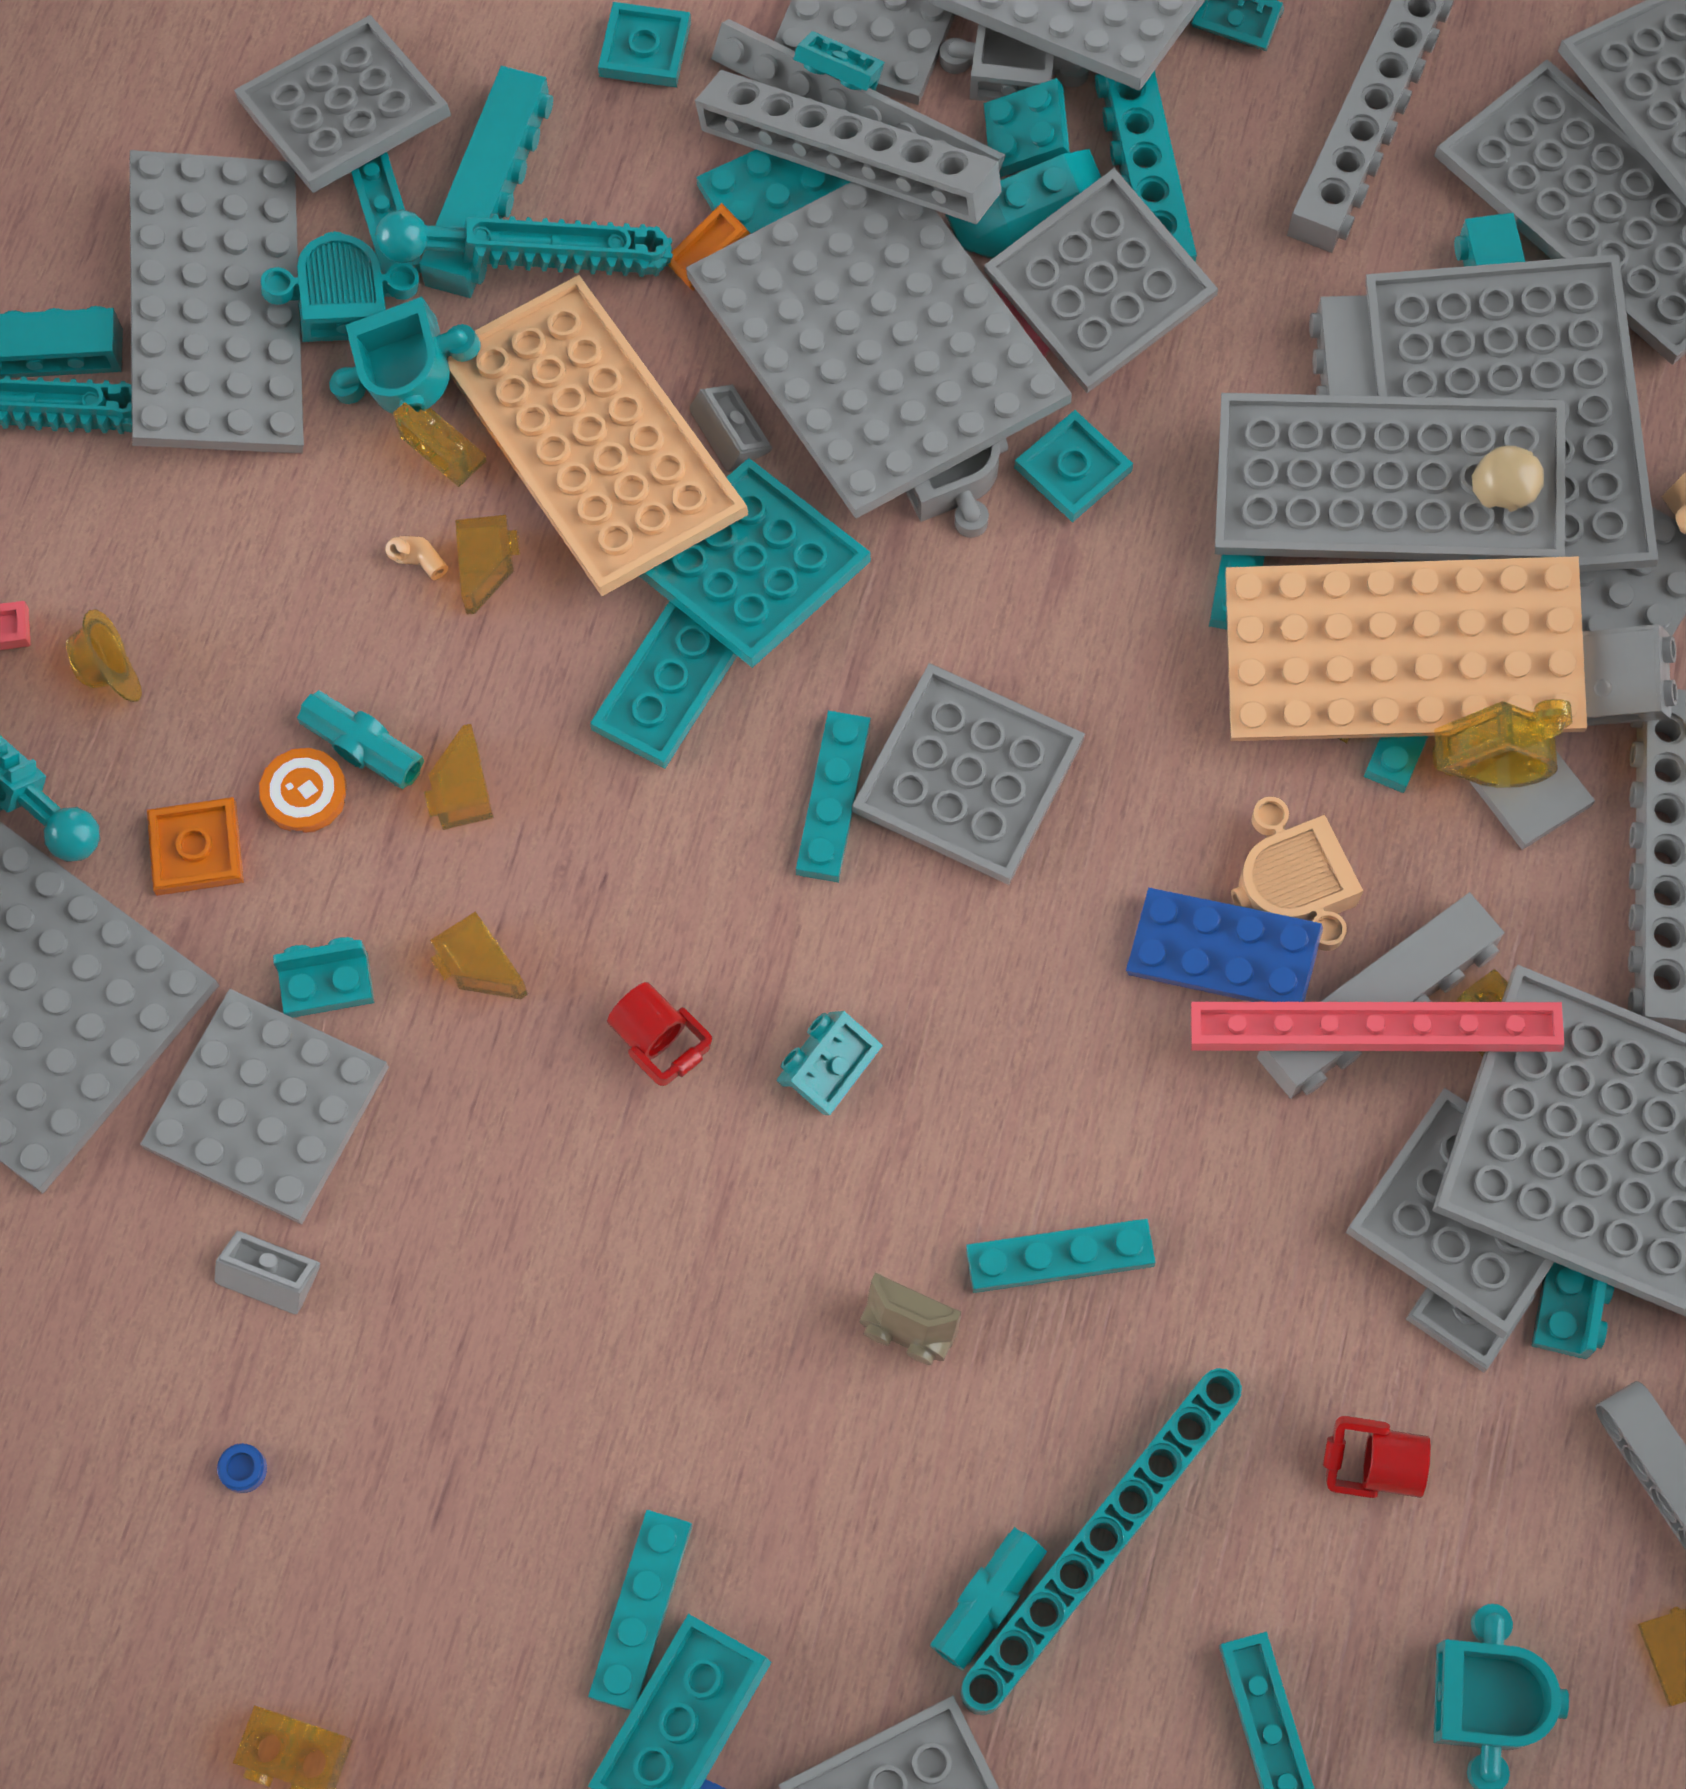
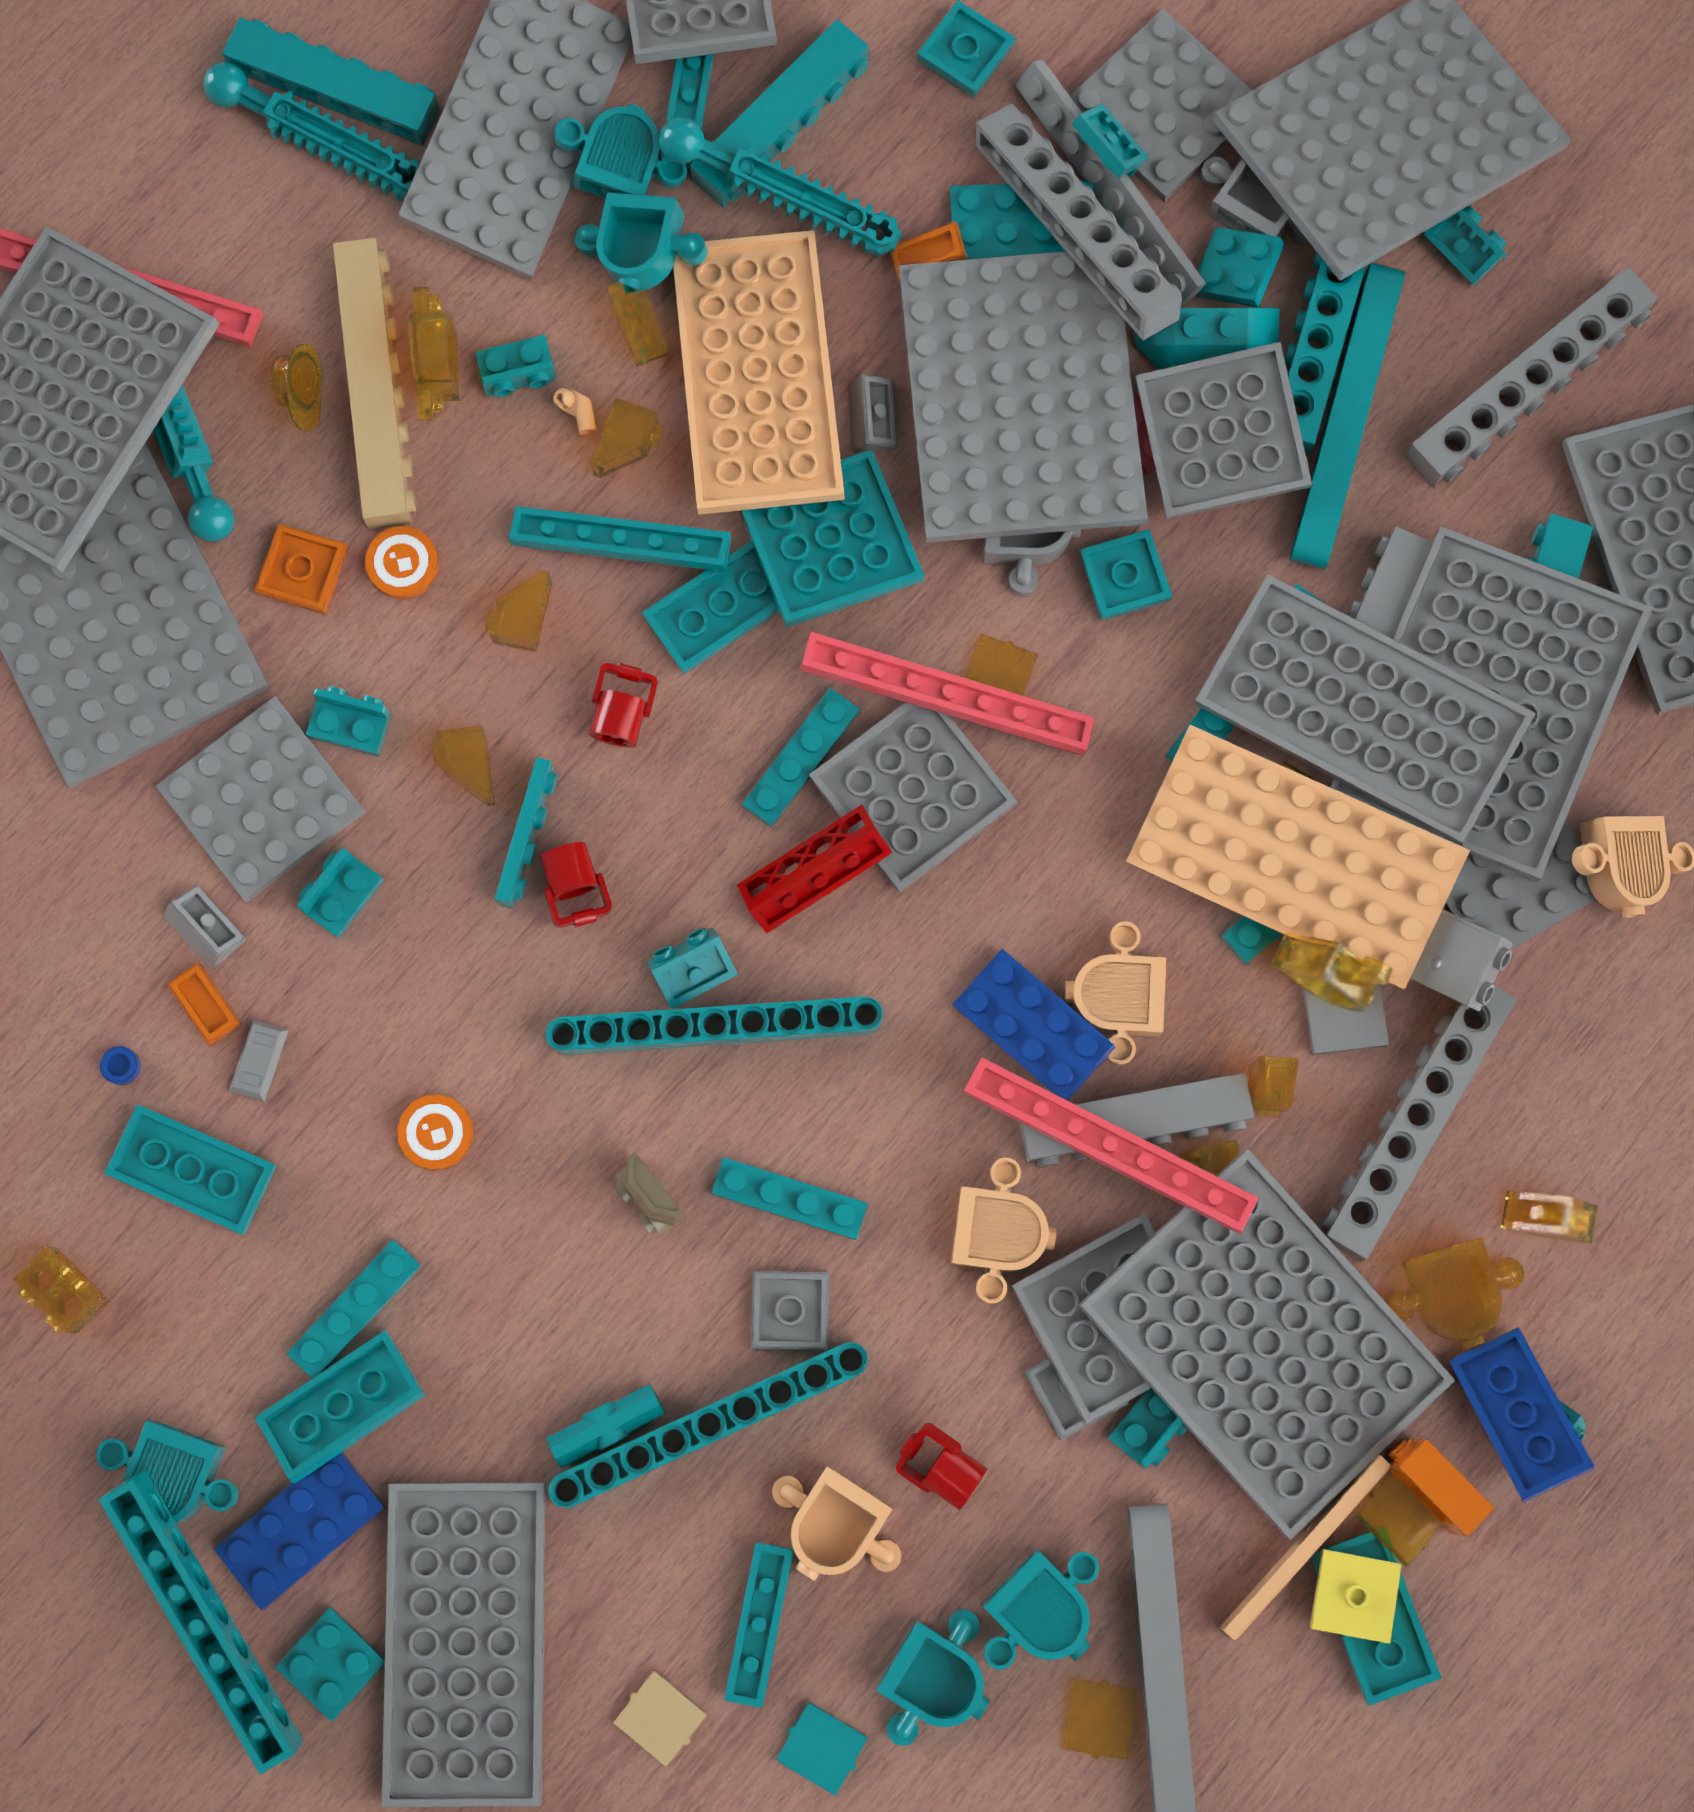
camera: 25 degrees right, 10 degrees up
(185, 624) = (373, 384): none -> tan brick
(237, 560) = (432, 354): none -> clear yellow piece
(307, 1355) = (204, 1004): none -> orange tile
(330, 541) = (516, 366): none -> teal bracket
(360, 739) = (462, 542): teal piece -> none
(379, 1543) = (190, 1169): none -> teal plate
(397, 1388) = (258, 1060): none -> light grey tile
(401, 1163) = (339, 892): none -> teal bracket
(529, 659) = (620, 538): none -> teal plate
(583, 1022) = (522, 849): none -> teal plate
(617, 831) = (617, 713): none -> red piece
(636, 1370) = (435, 1132): none -> orange tile
(874, 1128) = (697, 1017): none -> teal beam
(913, 899) = (816, 873): none -> red fence
(954, 657) = (947, 693): none -> coral plate
(994, 621) = (1001, 665): none -> clear yellow piece
(1123, 1375) = (790, 1310): none -> light grey tile
(1214, 223) = (1347, 416): none -> teal beam
(1296, 1580) = (836, 1525): none -> light nougat piece
(1301, 1179) = (999, 1231): none -> light nougat piece
(1504, 888) = (1272, 1084): none -> clear yellow slope
(1508, 478) = (1452, 758): tan hair -> none
(1567, 1561) = (1041, 1610): none -> teal piece

